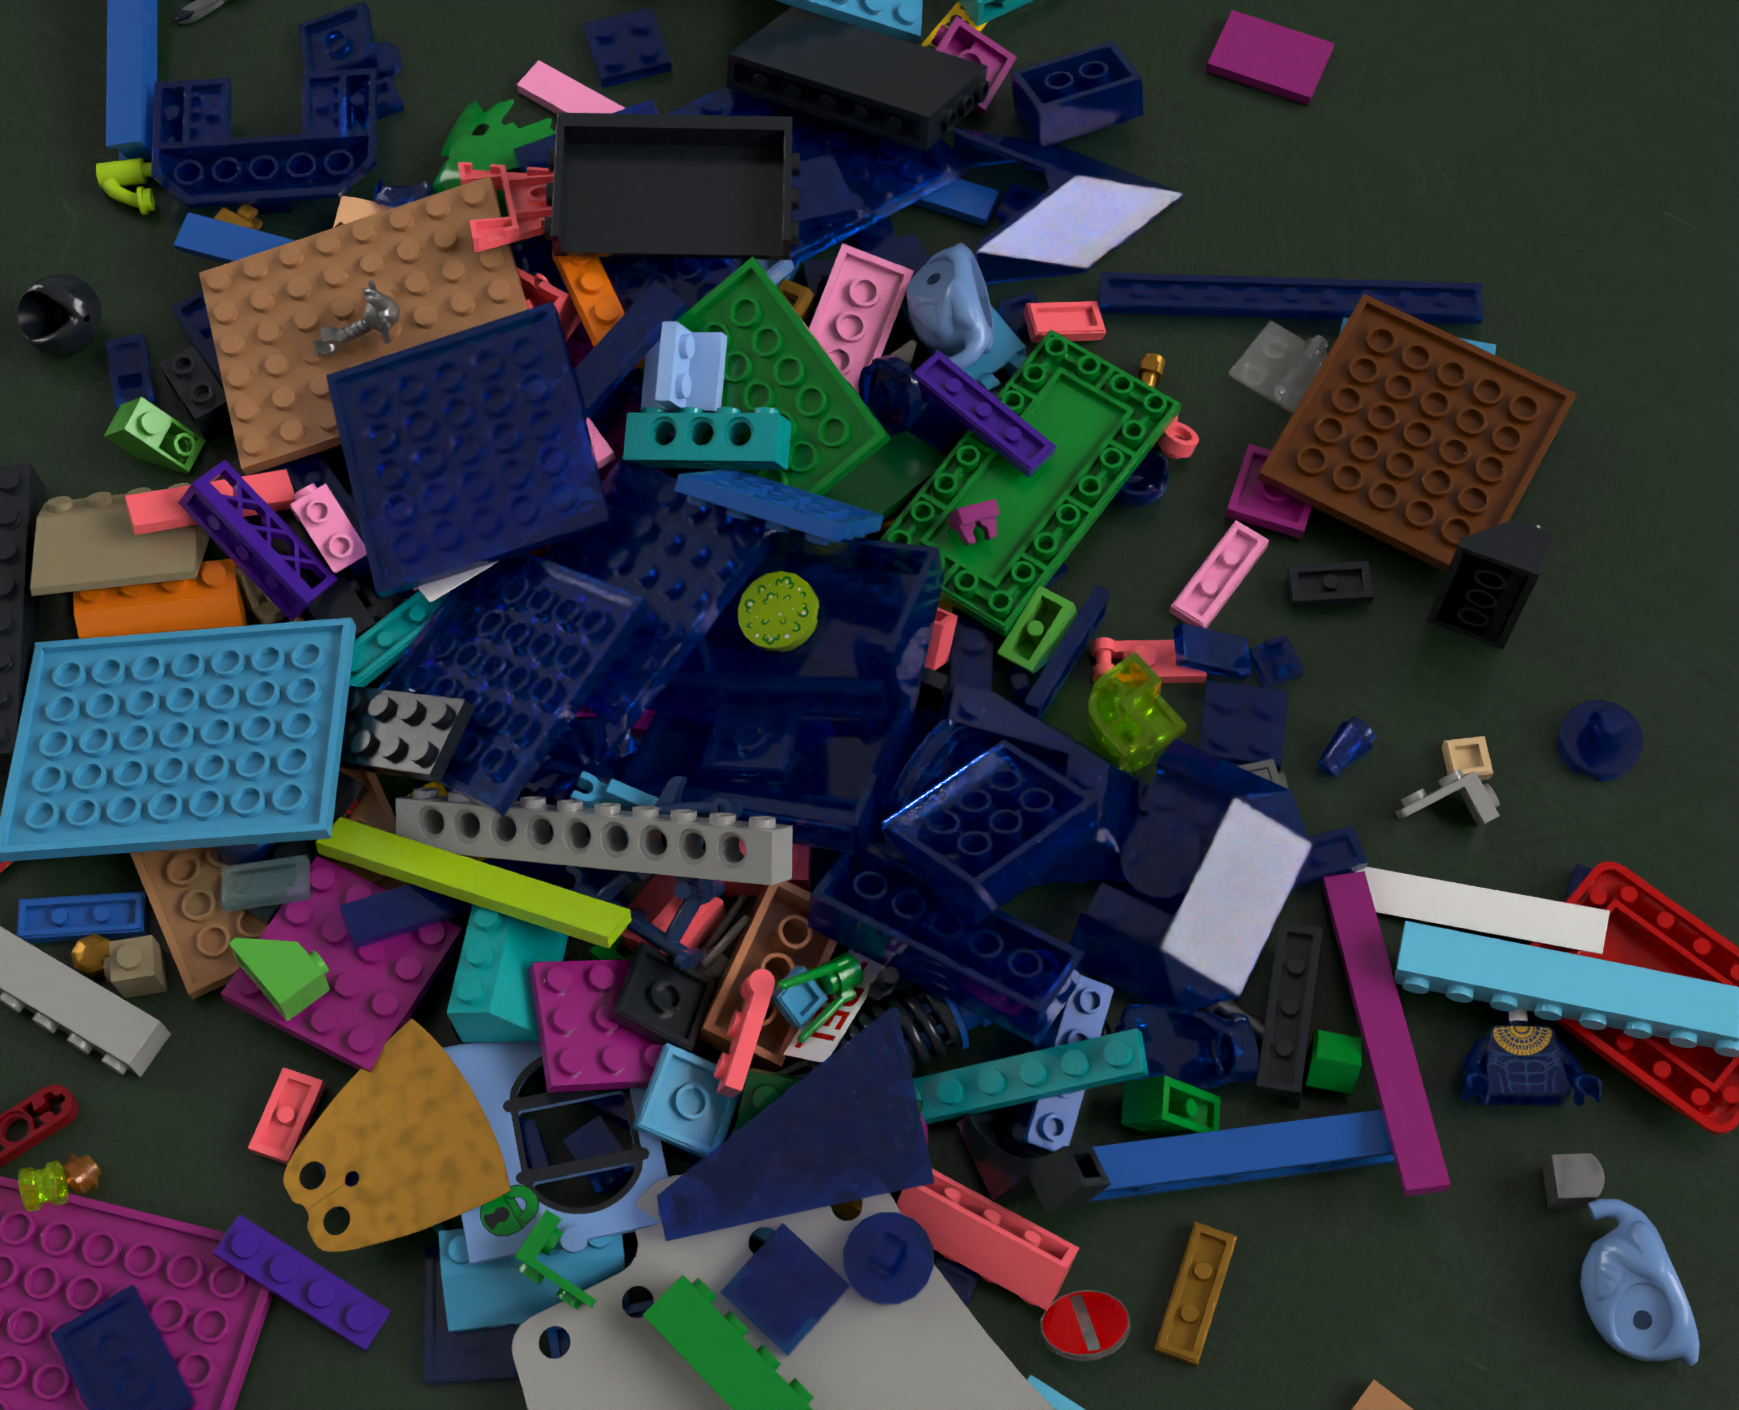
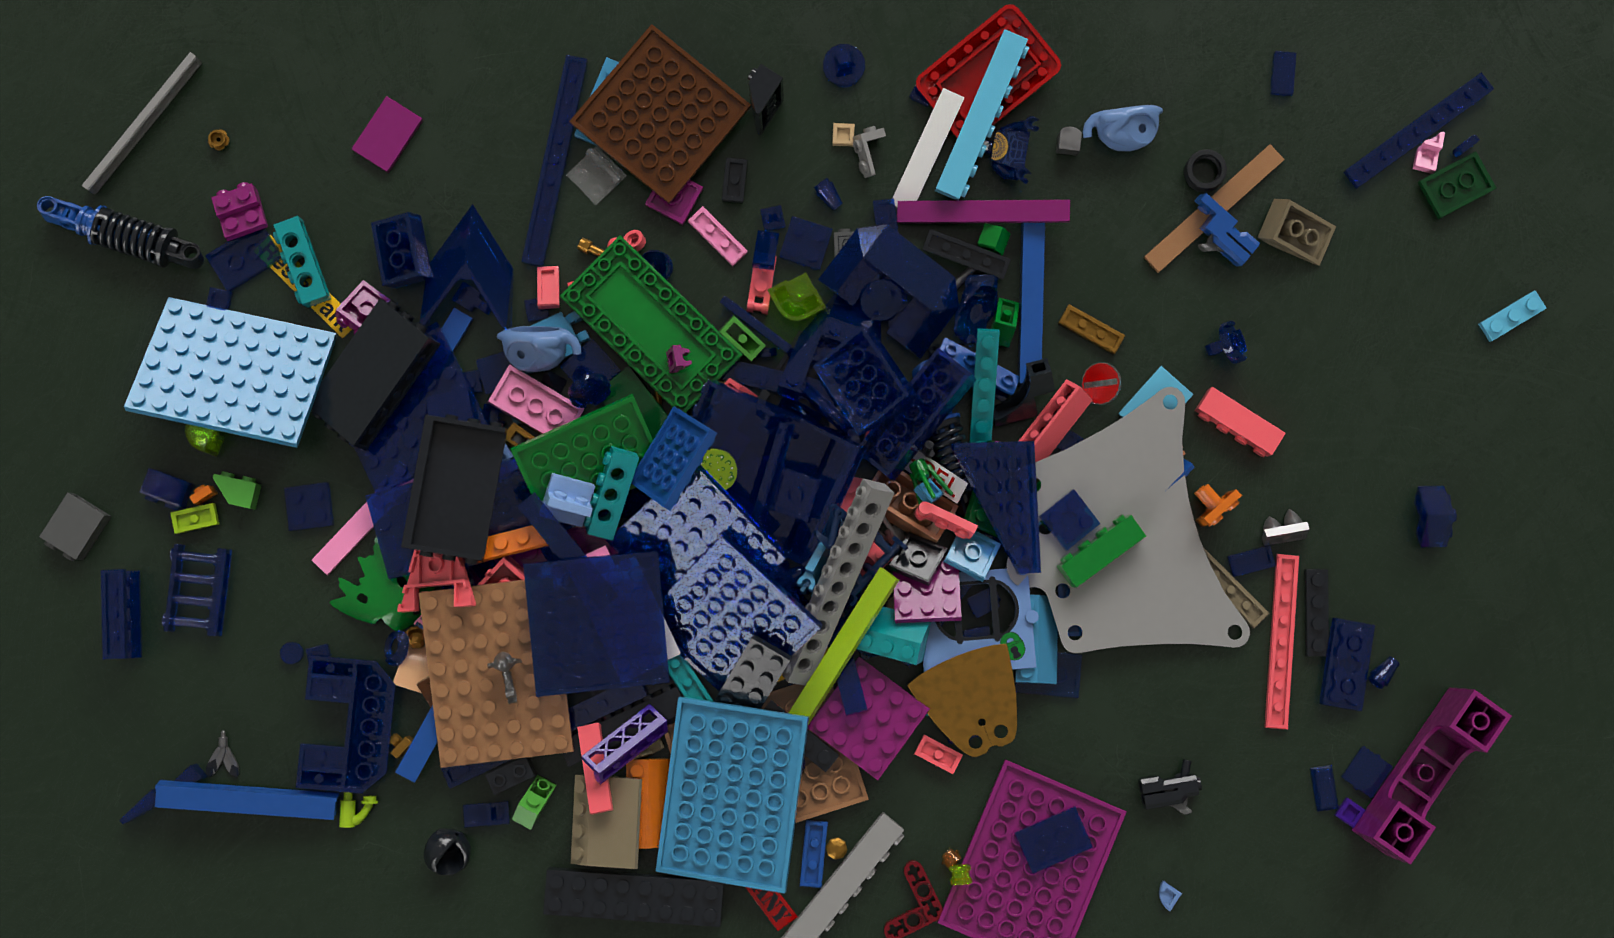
camera: 85 degrees left, 20 degrees up
(136, 966) = (849, 825): dark tan brick -> none
(265, 883) = (822, 753): clear light blue tile -> none
(282, 972) = (877, 746): bright green slope -> none
(302, 1283) = (1024, 752): dark purple plate -> none
(328, 526) = (620, 706): bright pink bracket -> none
(339, 40) = (277, 678): clear blue tile -> none
(544, 1238) = (1033, 632): green bracket -> none
(888, 1258) = (1063, 469): clear blue tile -> none
(984, 414) = (612, 342): dark purple tile -> none

